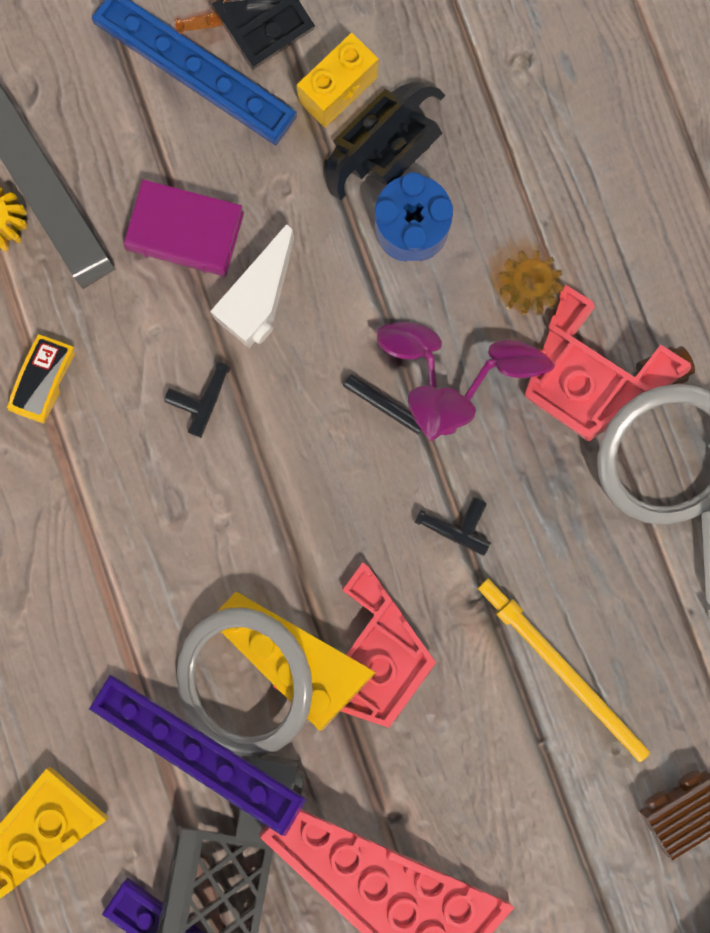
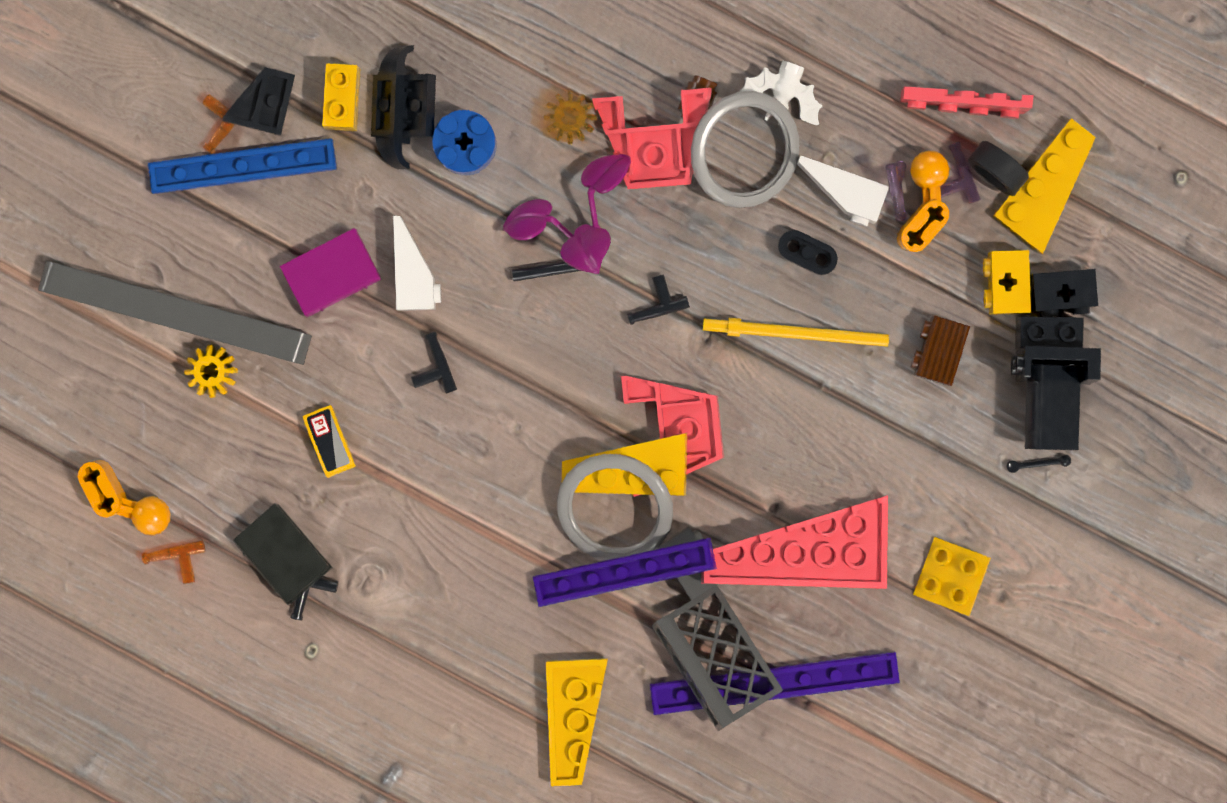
camera: 45 degrees left, 5 degrees up
(640, 604) = (807, 252): none -> black plate

